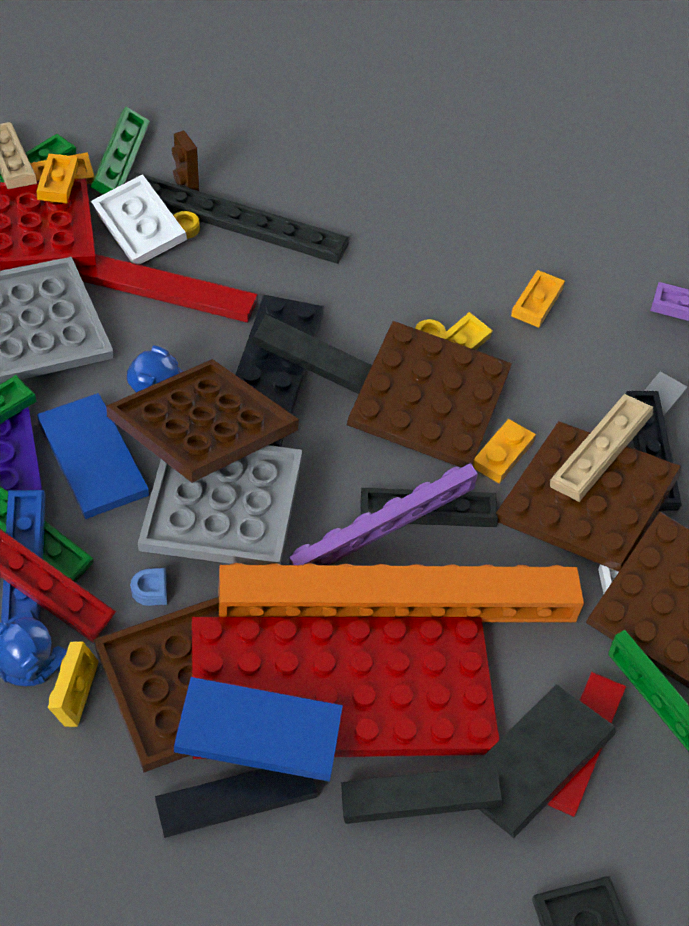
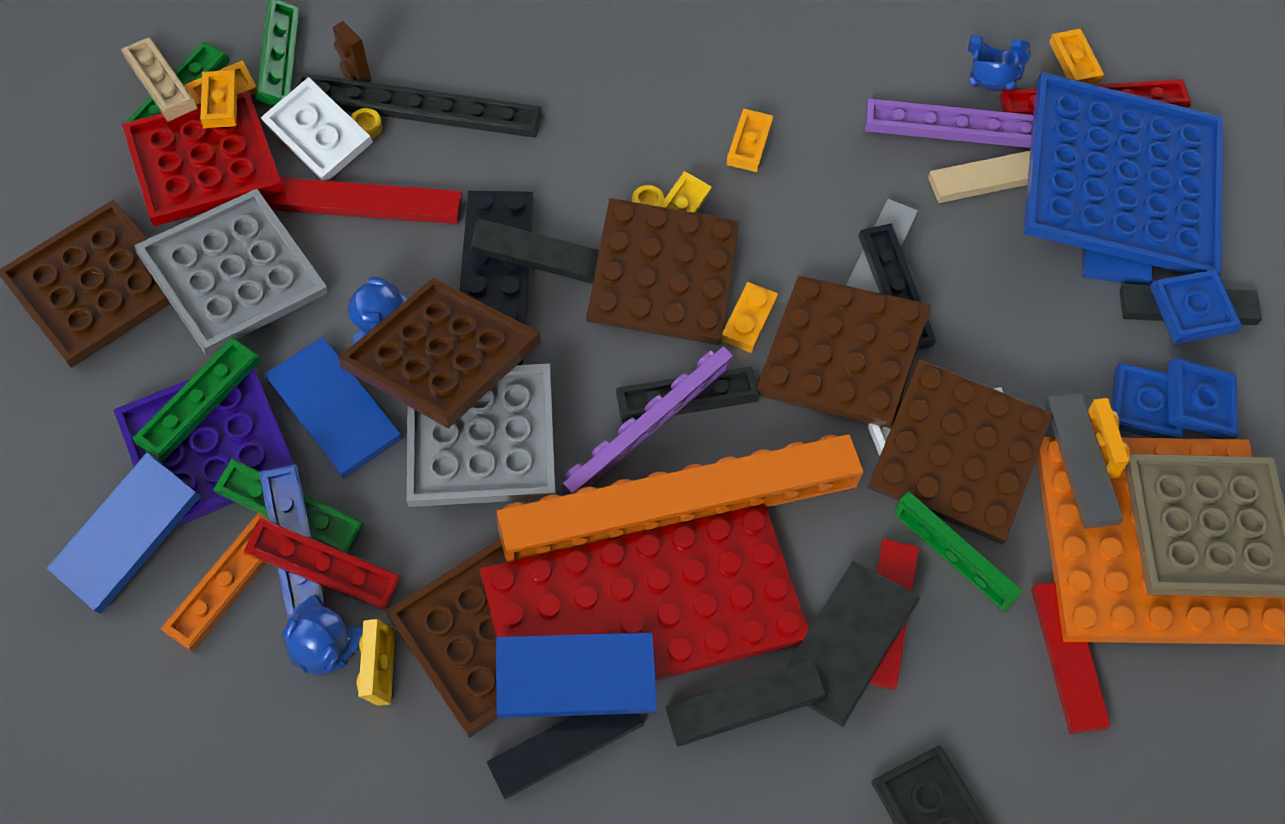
camera: 10 degrees left, 10 degrees up
(150, 587) = (427, 539): medium blue tile -> none
(601, 447) = (848, 299): tan tile -> none

